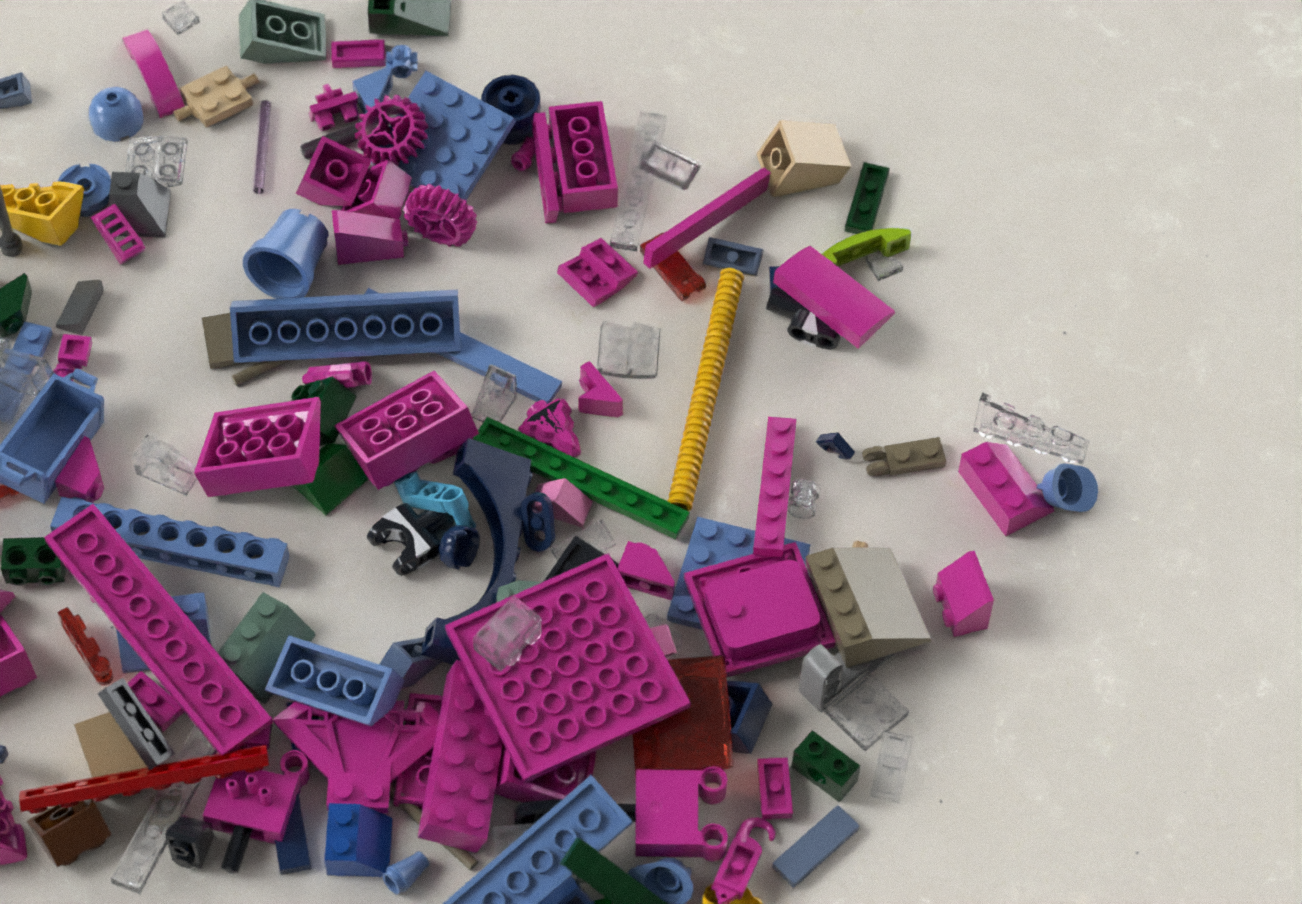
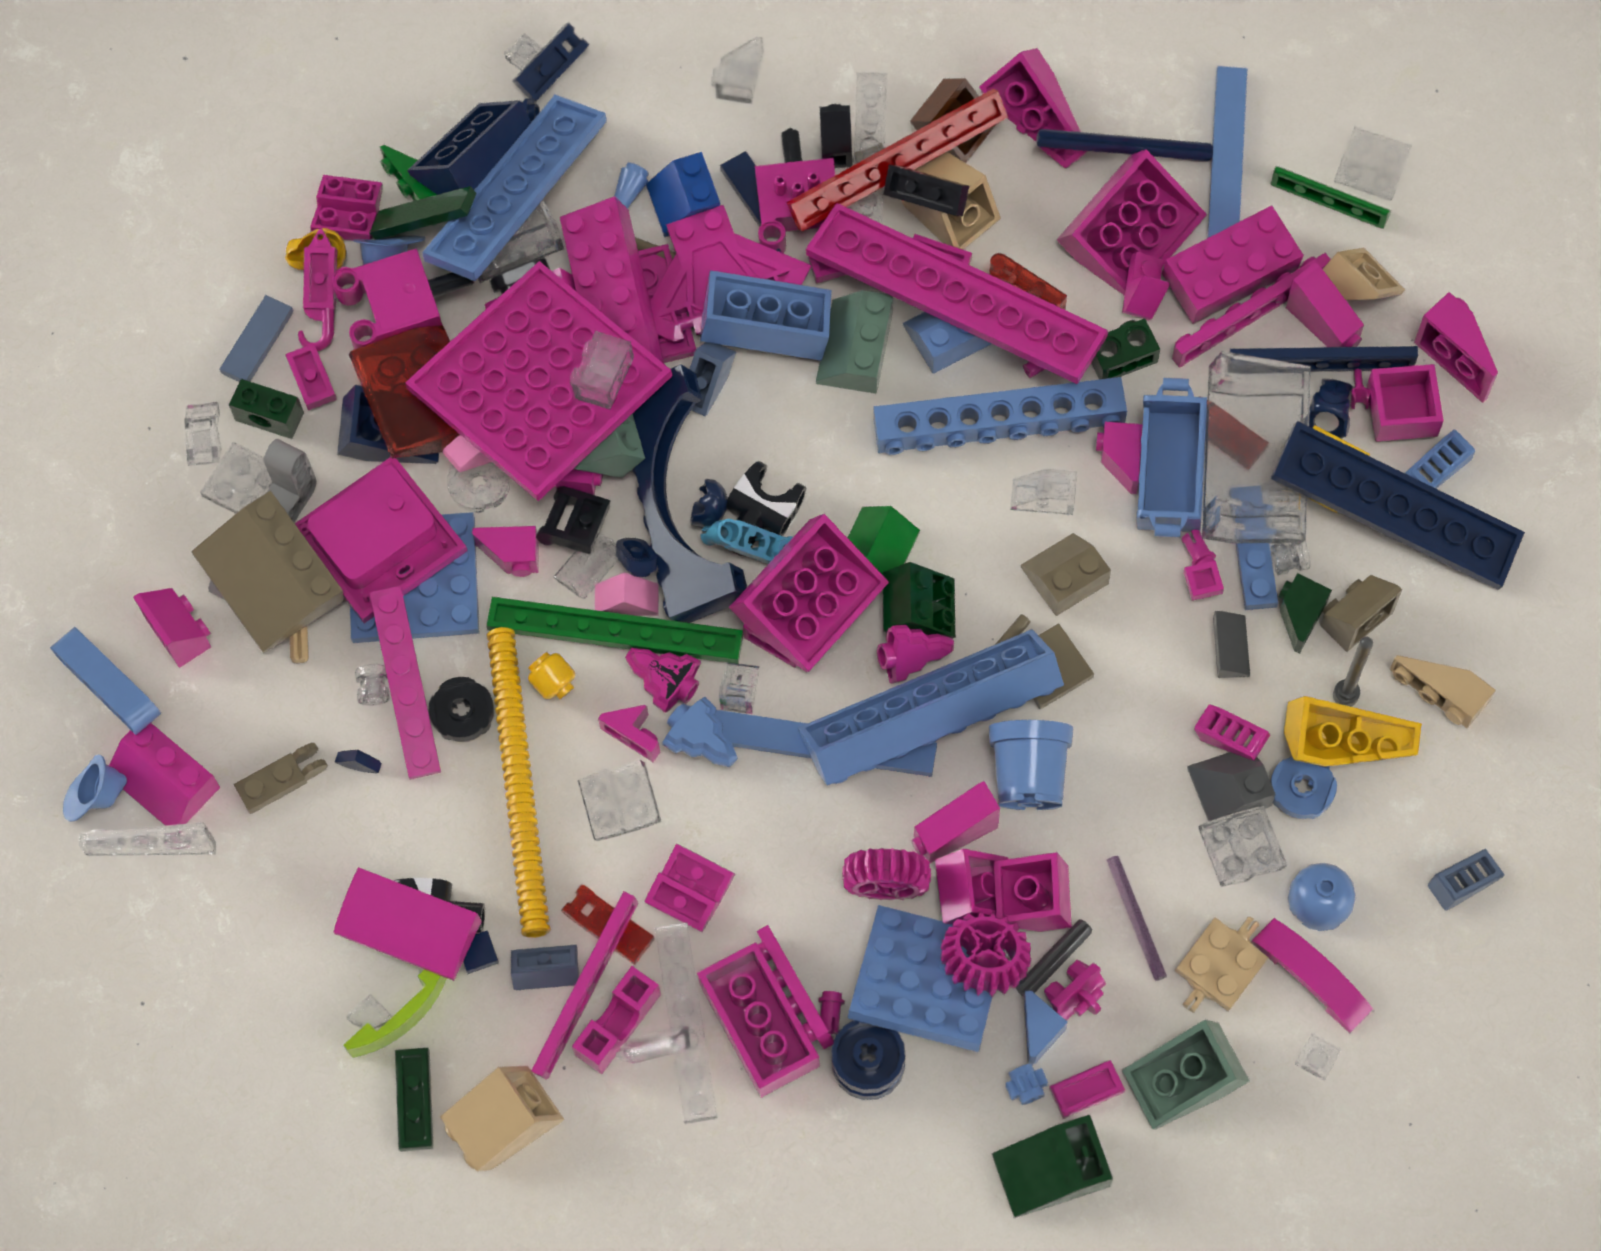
camera: 165 degrees right, 10 degrees up
(181, 397) = (1067, 573): none -> dark tan slope
(261, 448) = (951, 525): dark pink slope -> none
(544, 367) = (699, 734): none -> medium blue rock
(648, 455) = (551, 676): none -> yellow head
(674, 201) = (627, 1009): none -> dark pink arch
(737, 472) = (465, 727): none -> black plate
(1036, 561) = (105, 680): none -> medium blue beam

